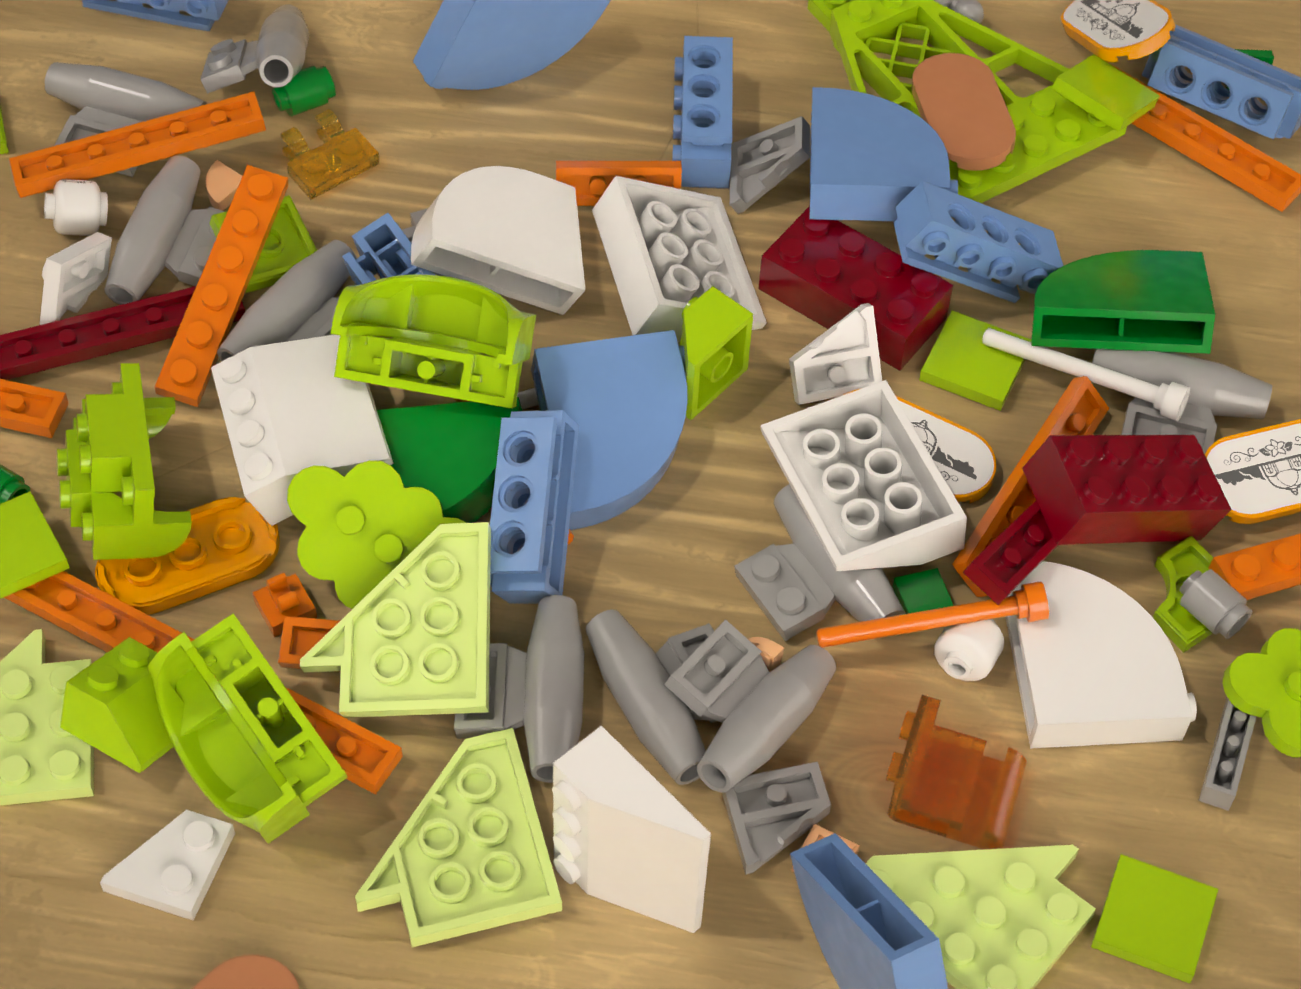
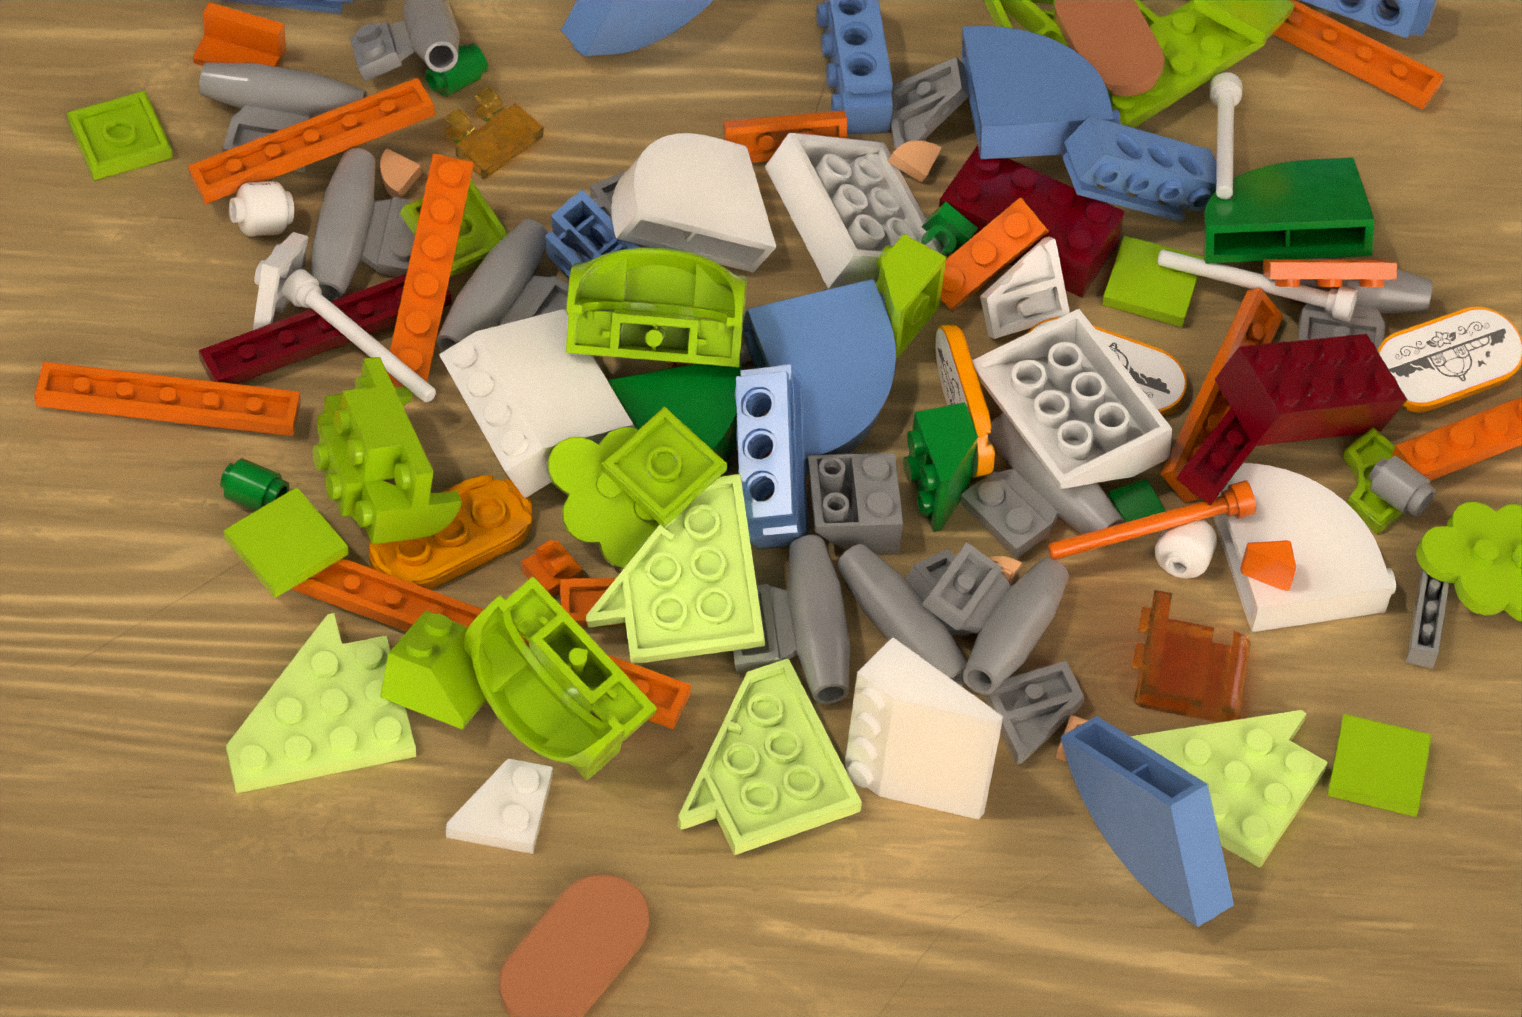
camera: 10 degrees left, 0 degrees up
(95, 292) = (304, 291): none -> white piece
(101, 43) = (239, 38): none -> orange panel
(407, 507) = (664, 466): none -> lime tile
(617, 562) = (857, 500): none -> light grey slope
(715, 527) = (940, 460): none -> green slope
(748, 214) = (915, 158): none -> light nougat tile
(752, 466) = (962, 385): none -> light orange tile
(768, 287) = (948, 228): none -> green tile
(804, 315) = (990, 253): none -> orange plate
(1056, 676) = (1270, 563): none -> orange slope
(1077, 178) = (1225, 94): none -> white piece
(1162, 366) = (1329, 271): none -> orange plate

